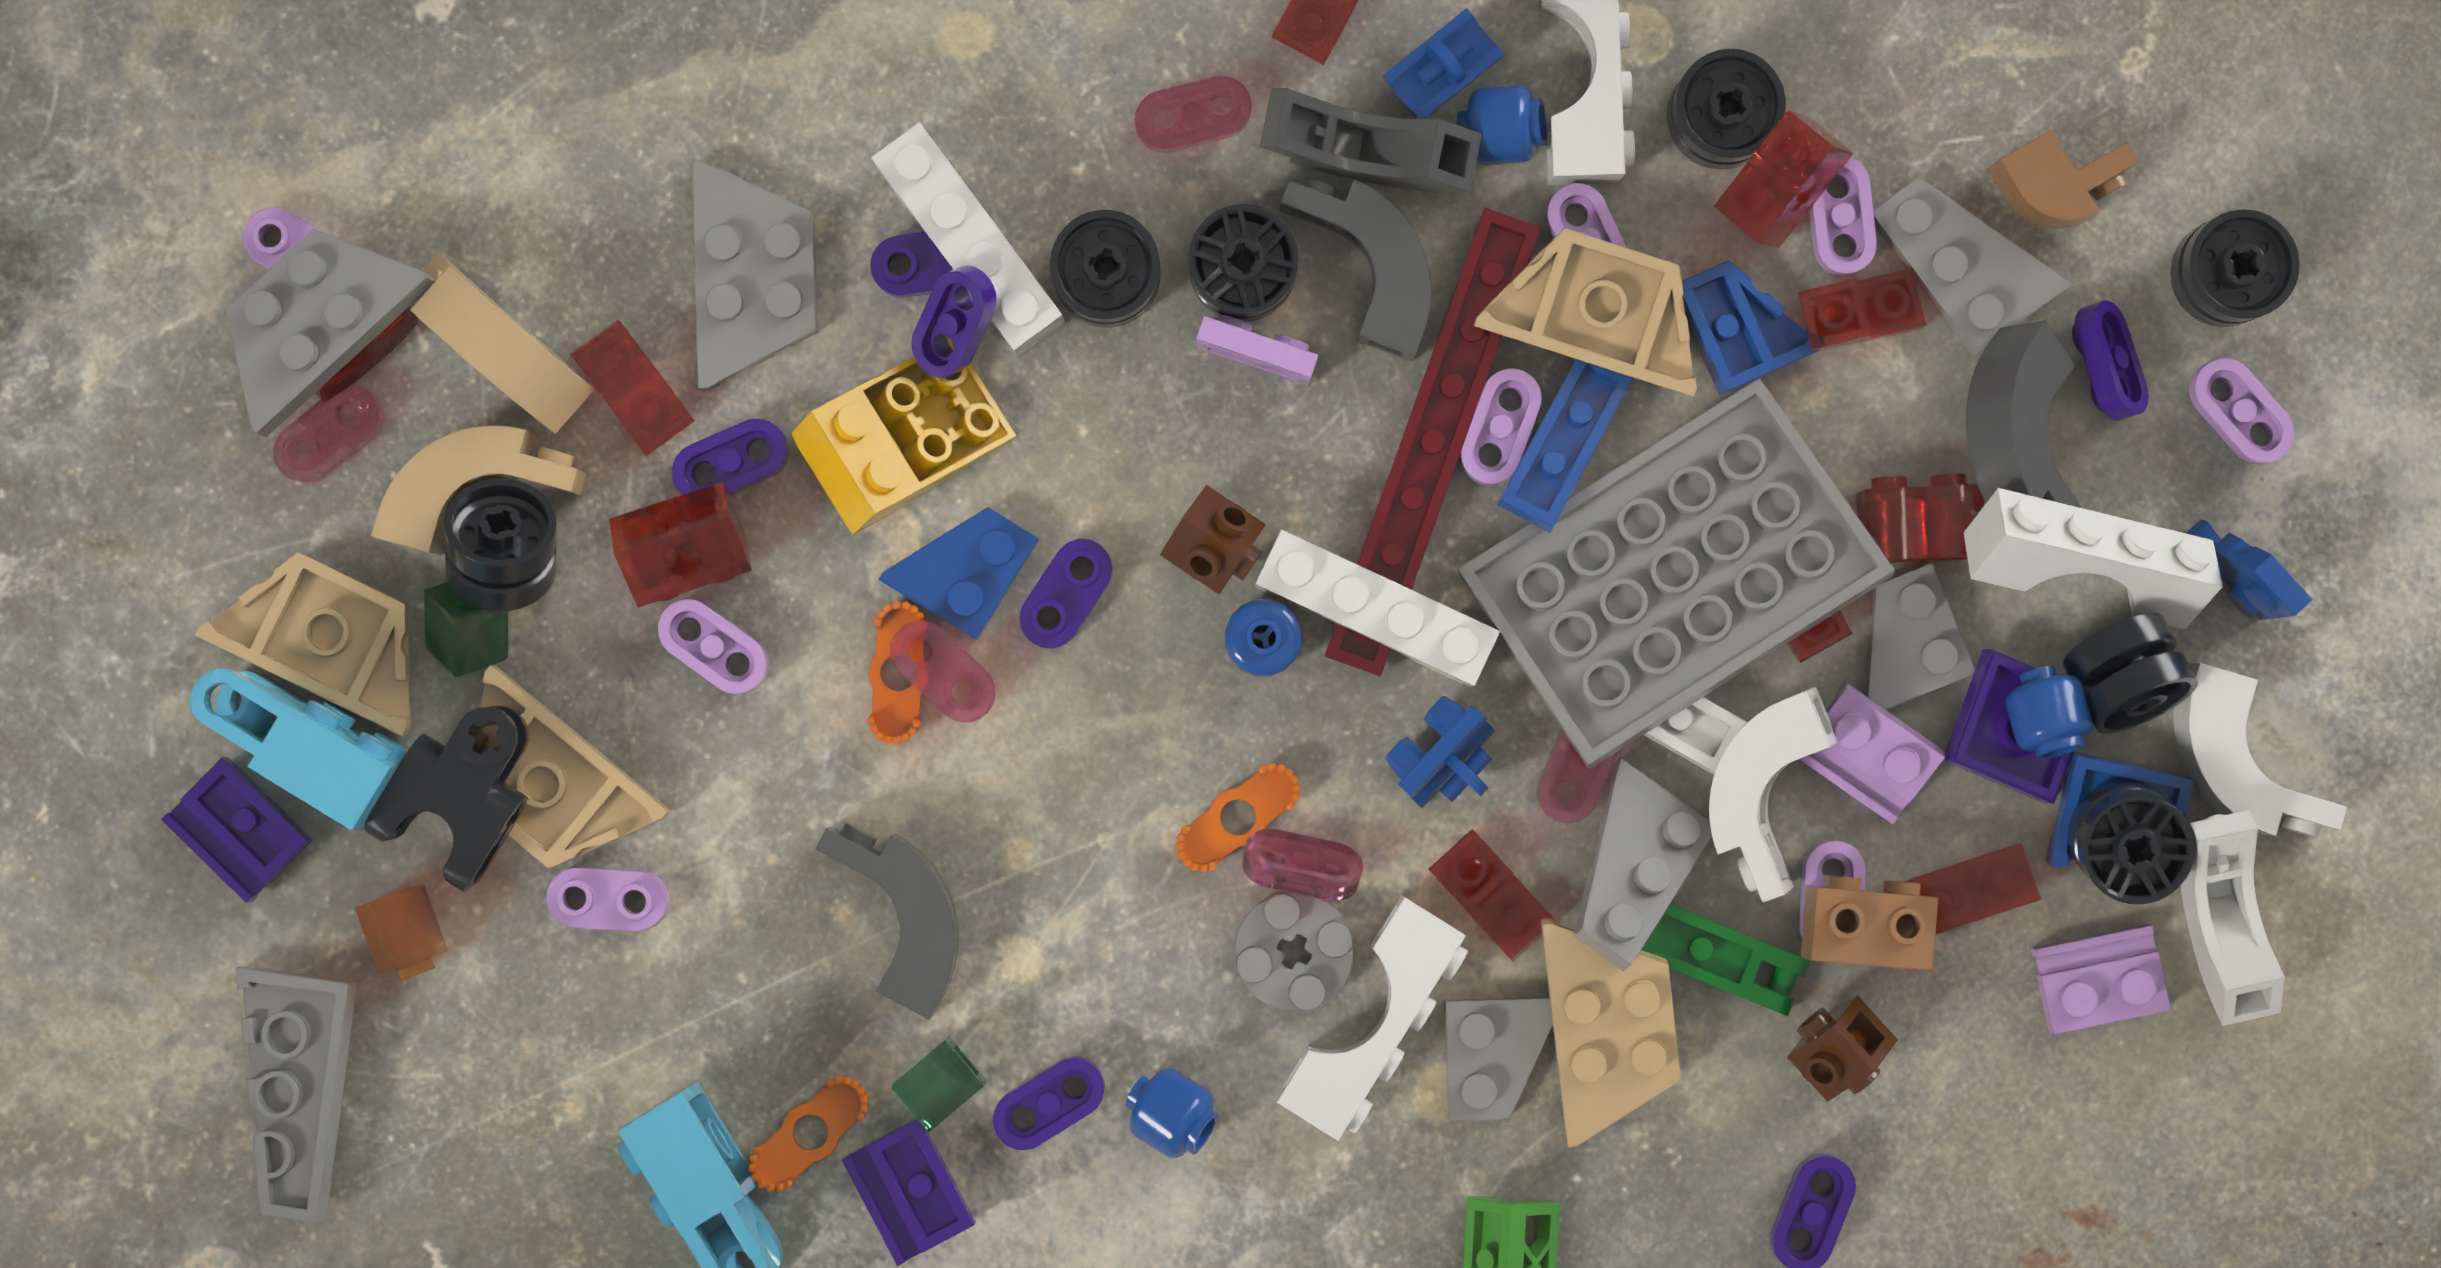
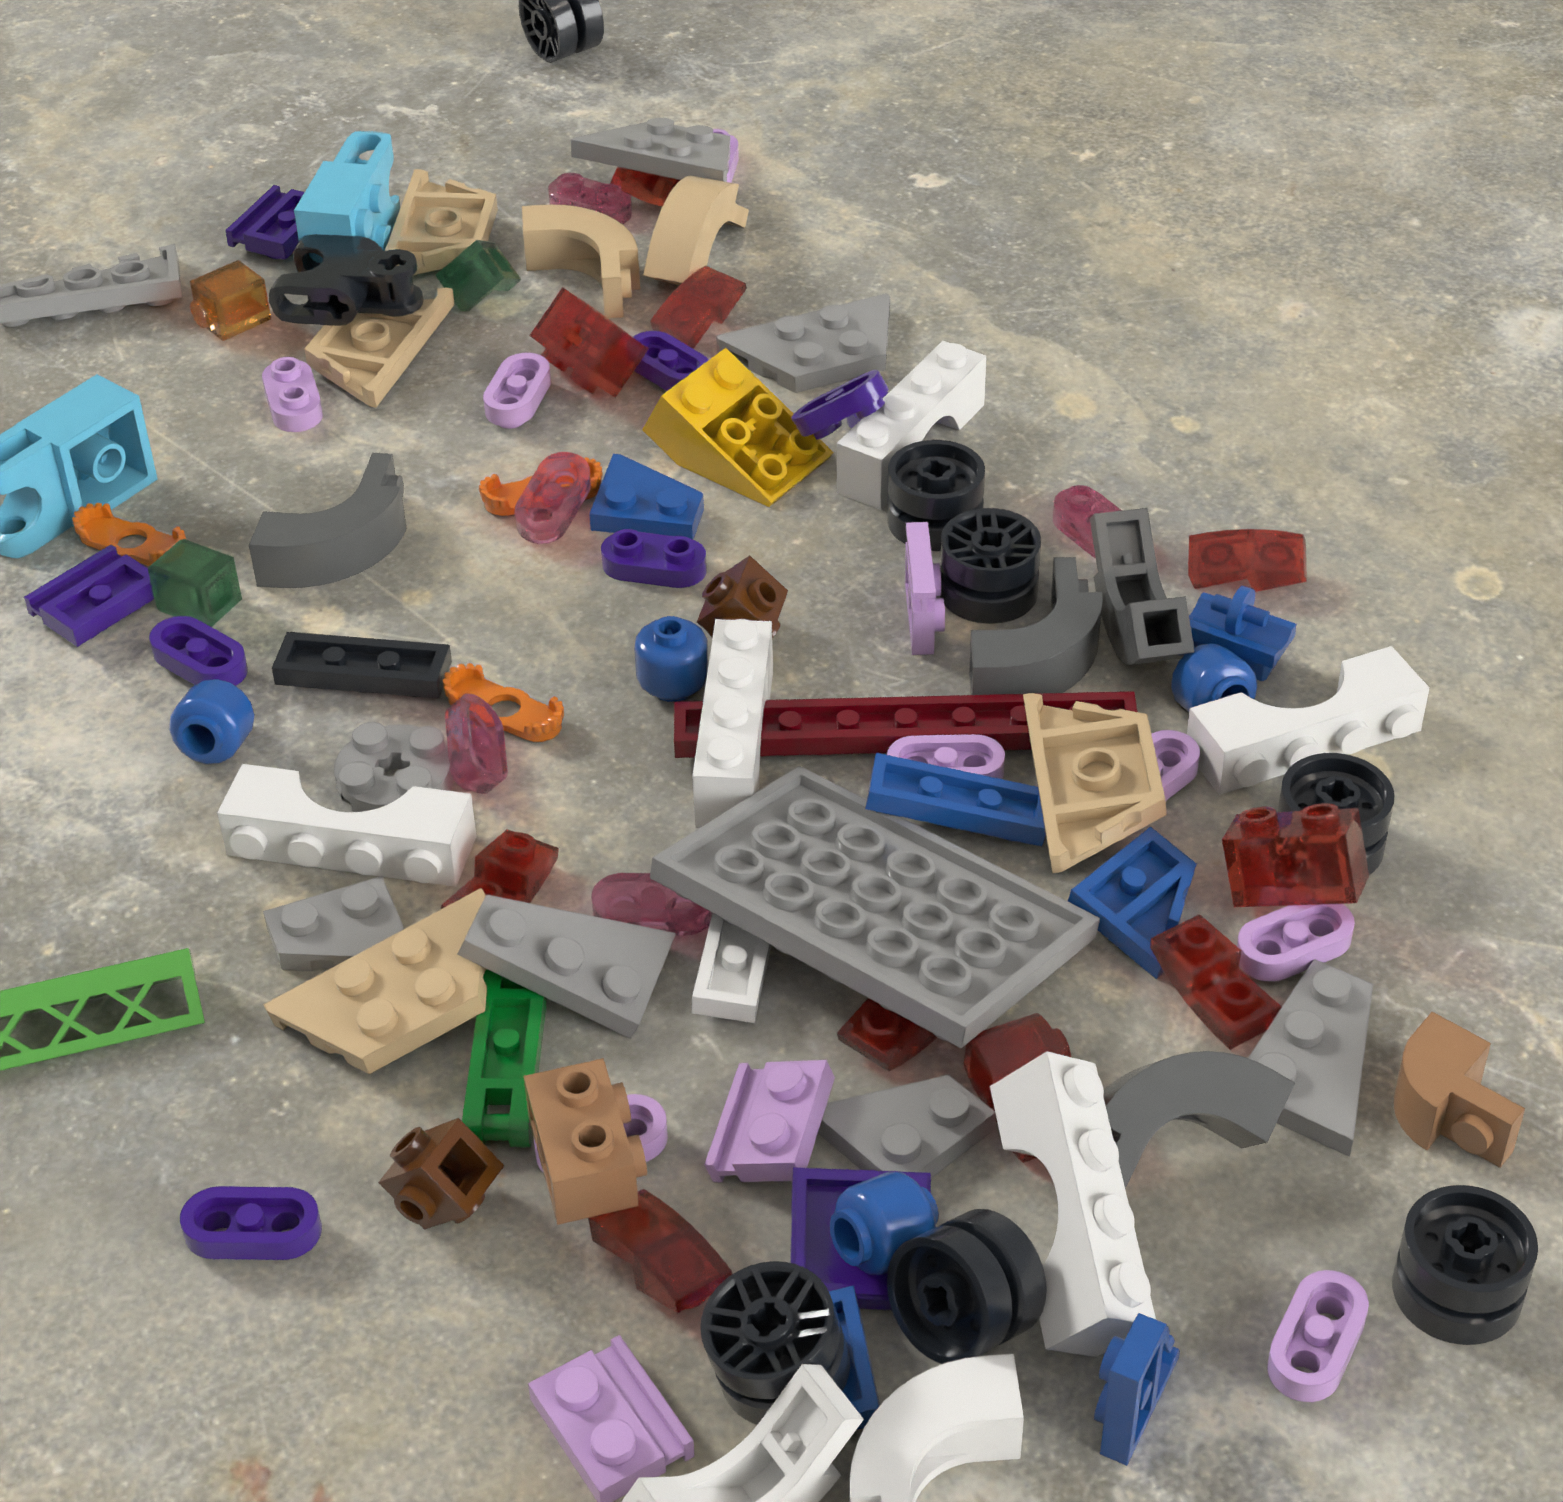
camera: 75 degrees right, 45 degrees down
(500, 544) = (543, 255): black wheel -> none
(1132, 943) = (362, 664): none -> black plate
(1451, 762) = (620, 807): blue hips -> none
(1744, 782) = (701, 1015): white arch -> none
(2111, 360) = (1290, 1198): dark purple plate -> none

